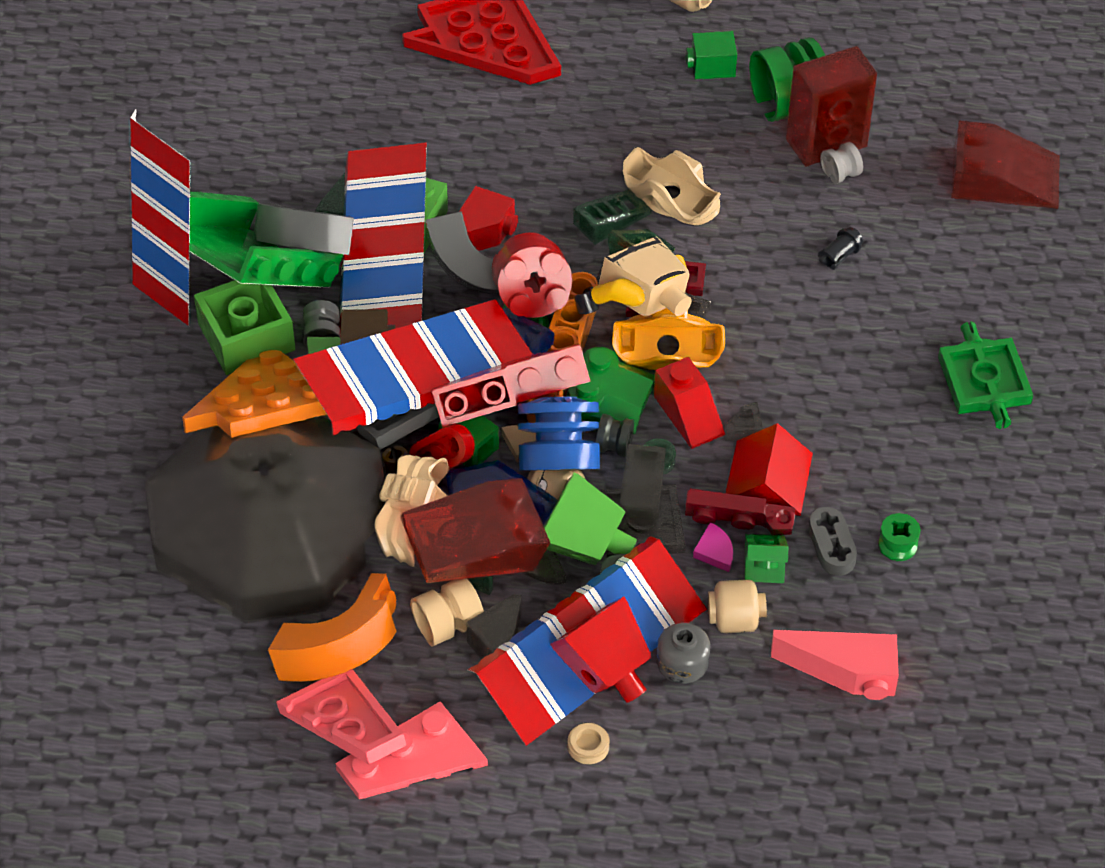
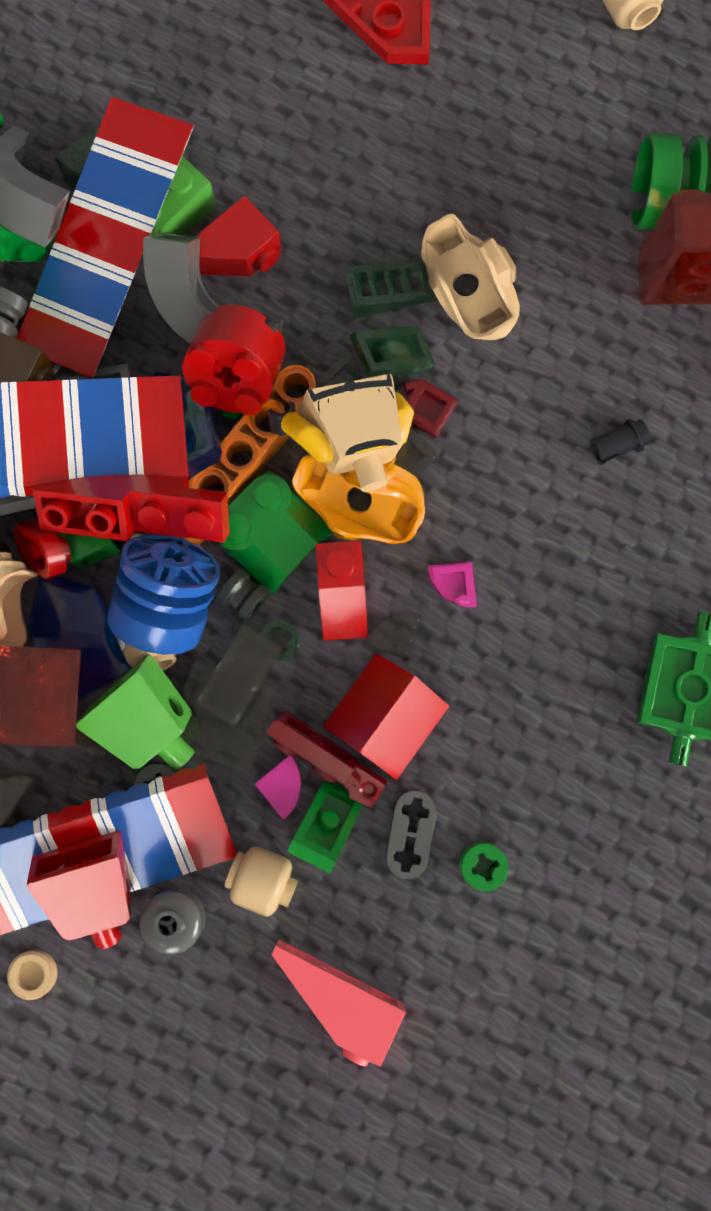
camera: 25 degrees right, 30 degrees up
(712, 55) = (610, 105): green brick -> none
(770, 375) = (454, 582): none -> dark pink tile
(842, 162) = (681, 322): light grey wheel -> none

